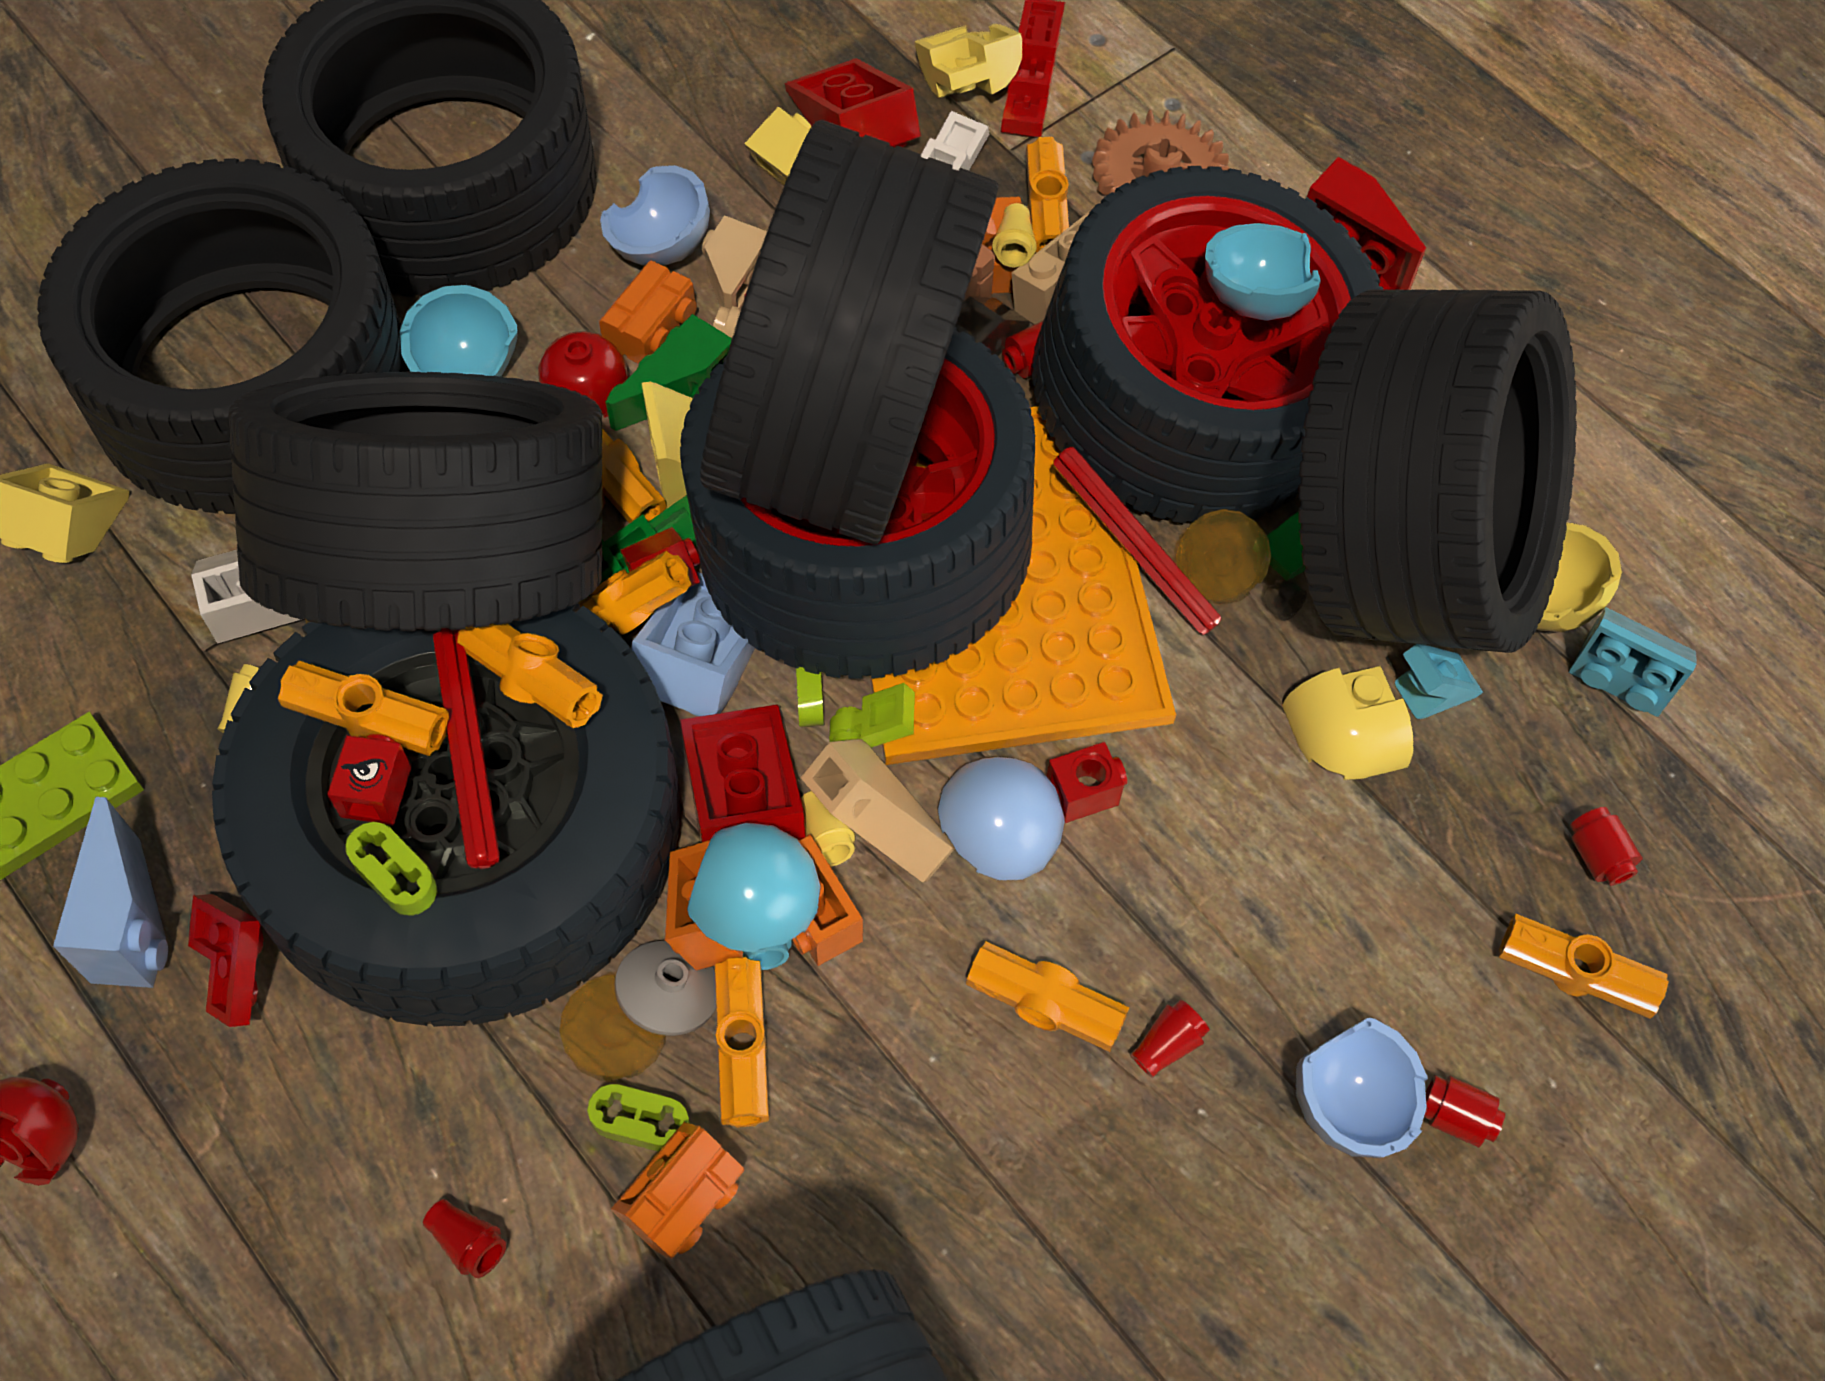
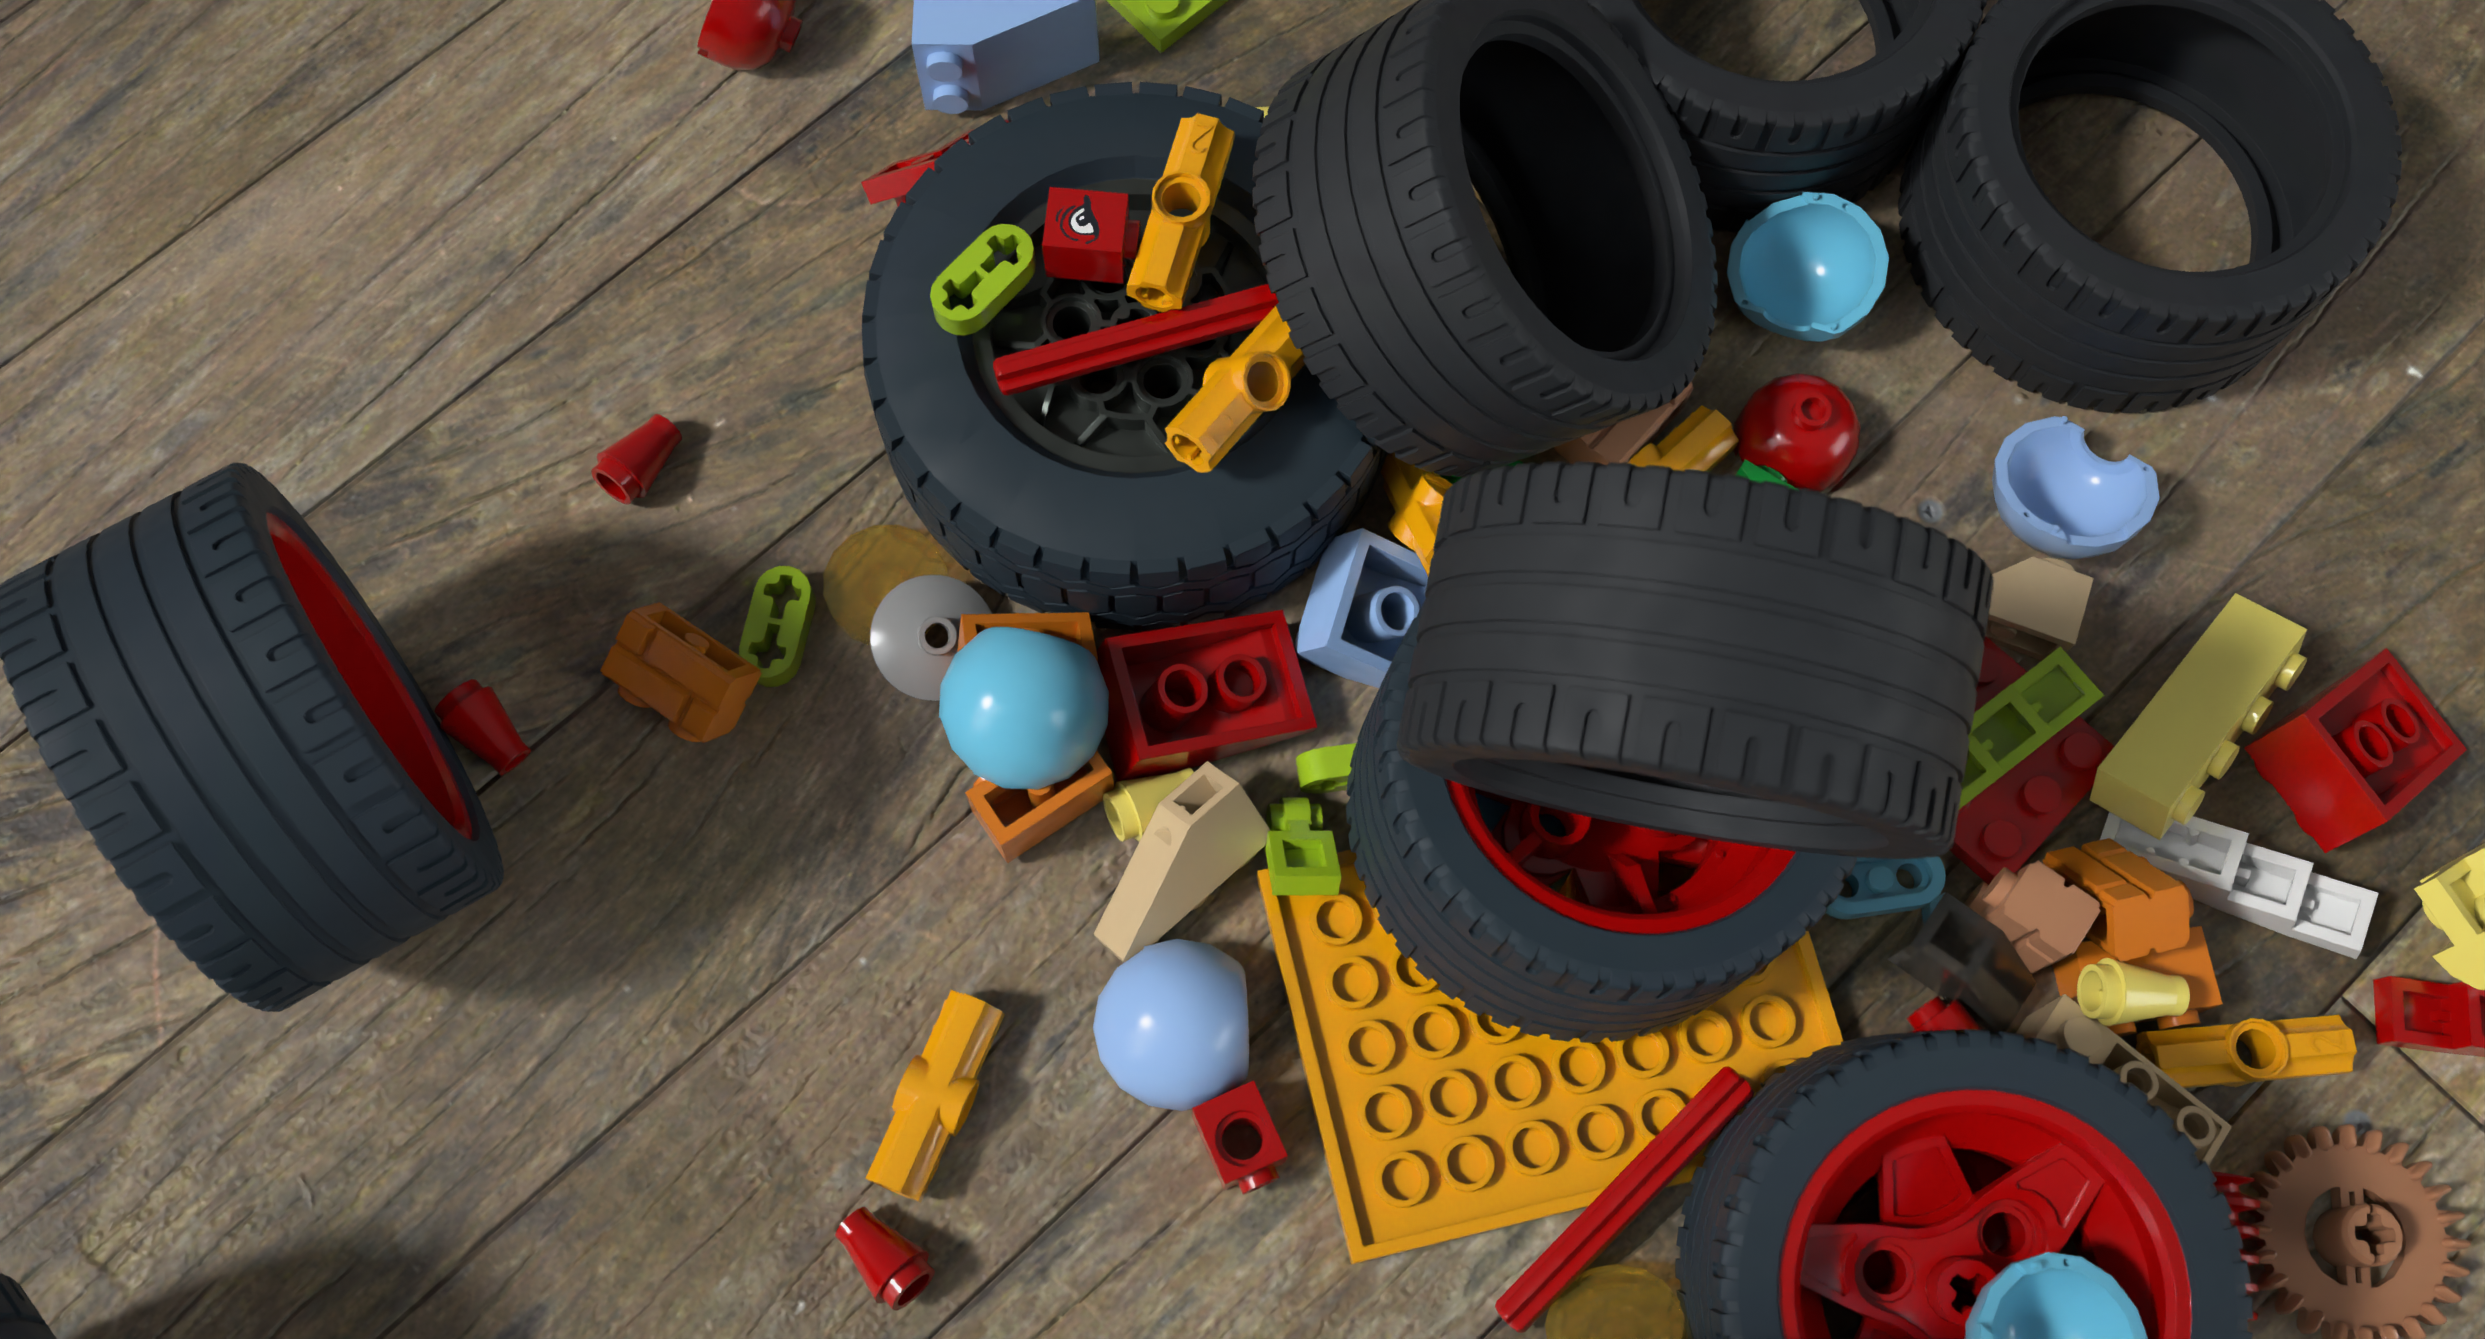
camera: 85 degrees right, 10 degrees up
(648, 311) = (1920, 490): orange brick -> none
(741, 1071) = (823, 730): light orange piece -> none

